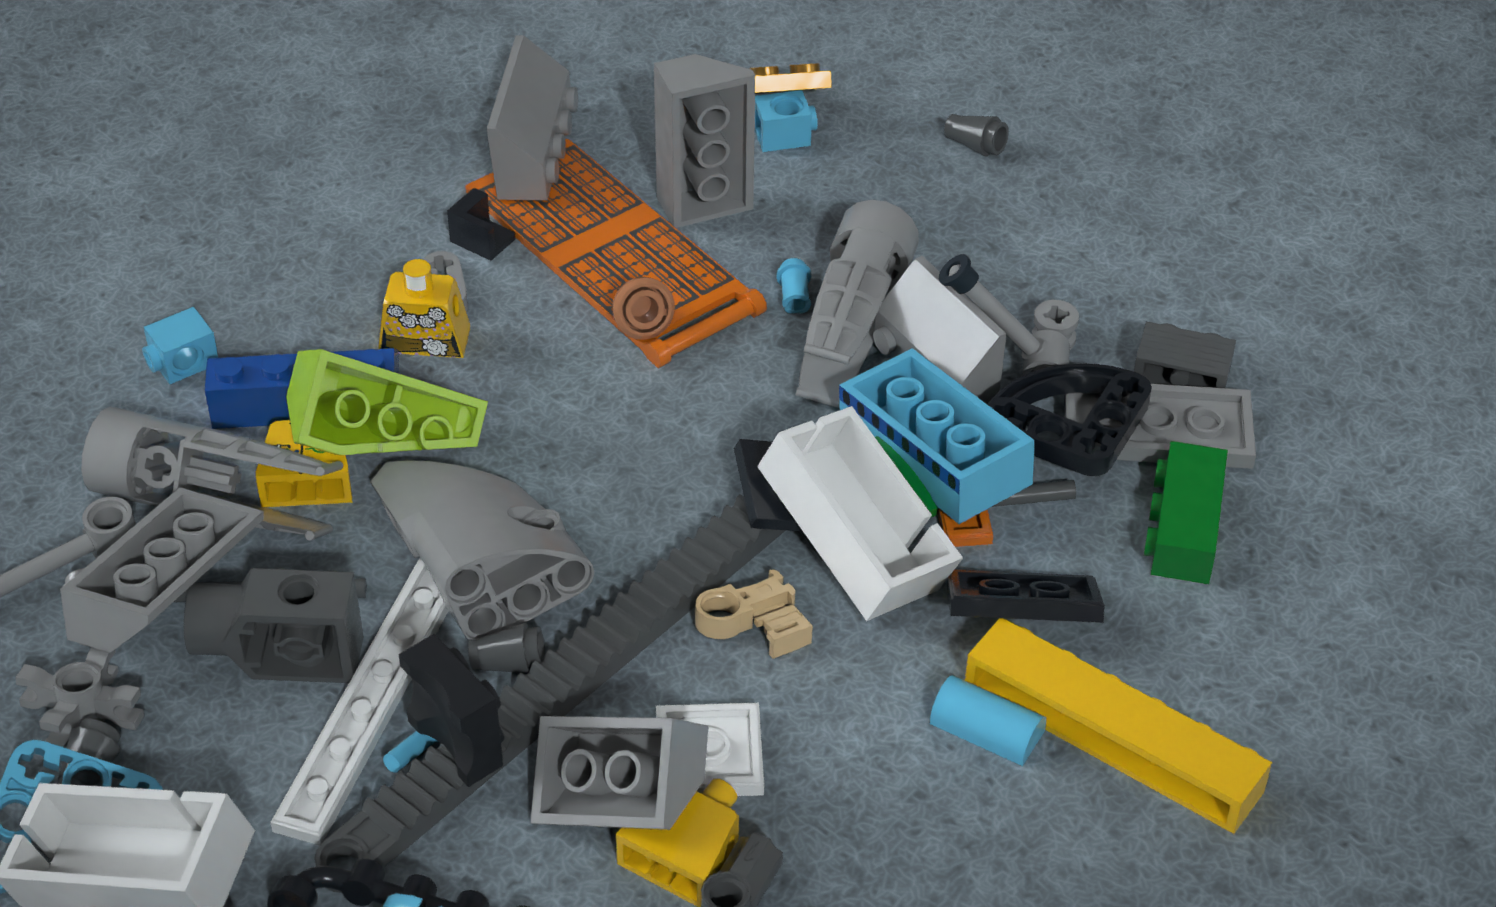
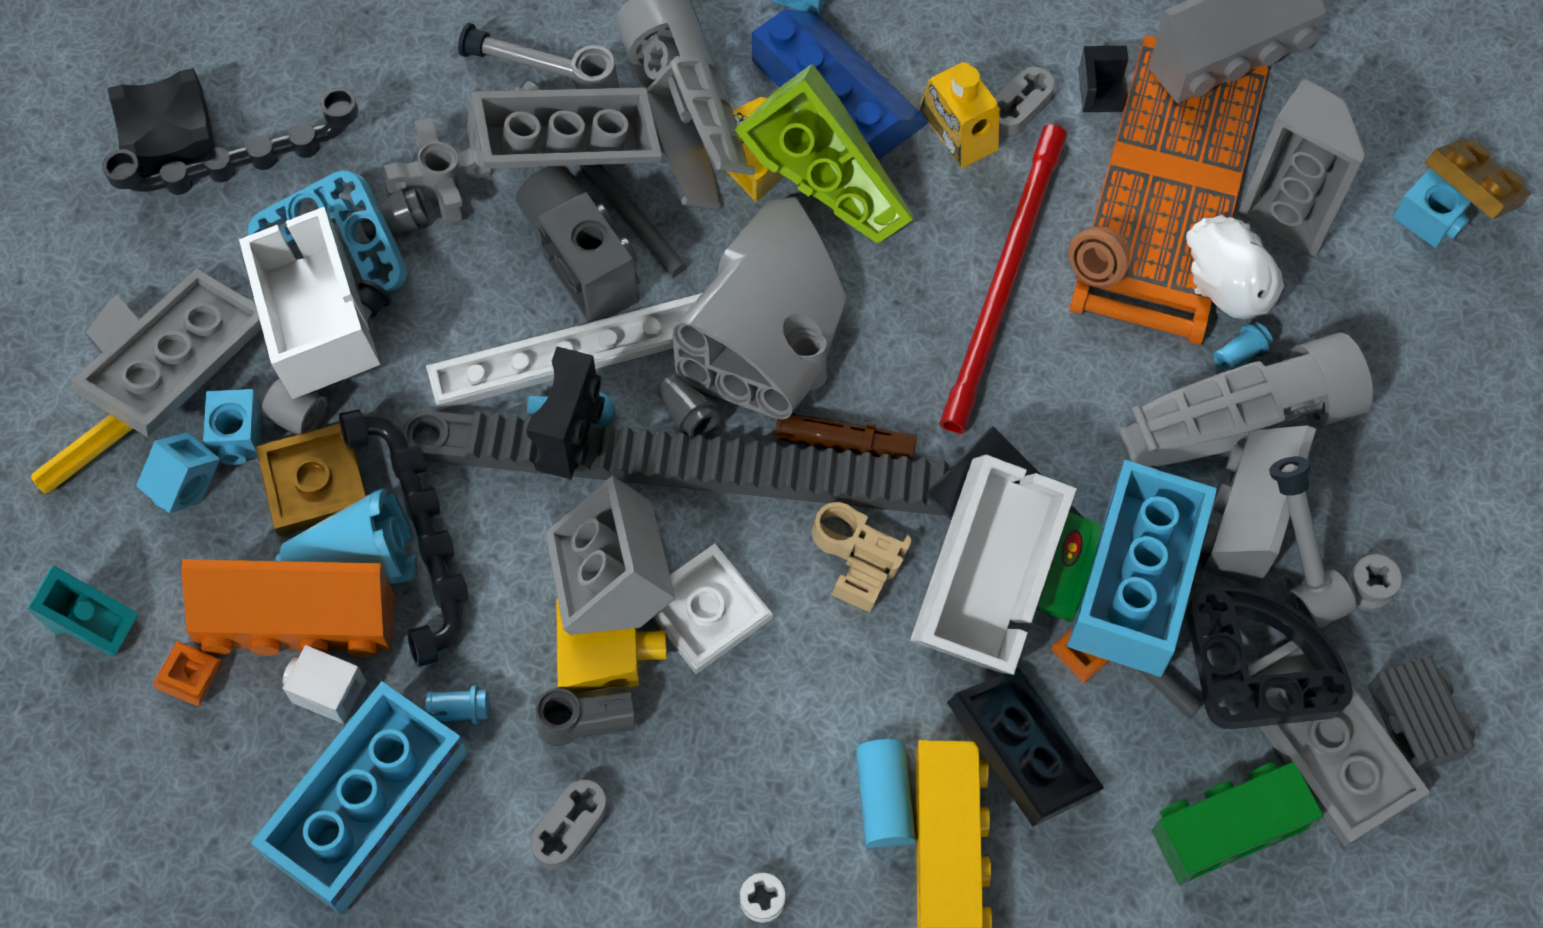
camera: 55 degrees right, 20 degrees up
(632, 565) = (845, 436): none -> reddish brown pin
(671, 466) = (964, 392): none -> red piece
(729, 240) = (1233, 267): none -> white piece
(1027, 865) = (754, 910): none -> white bush

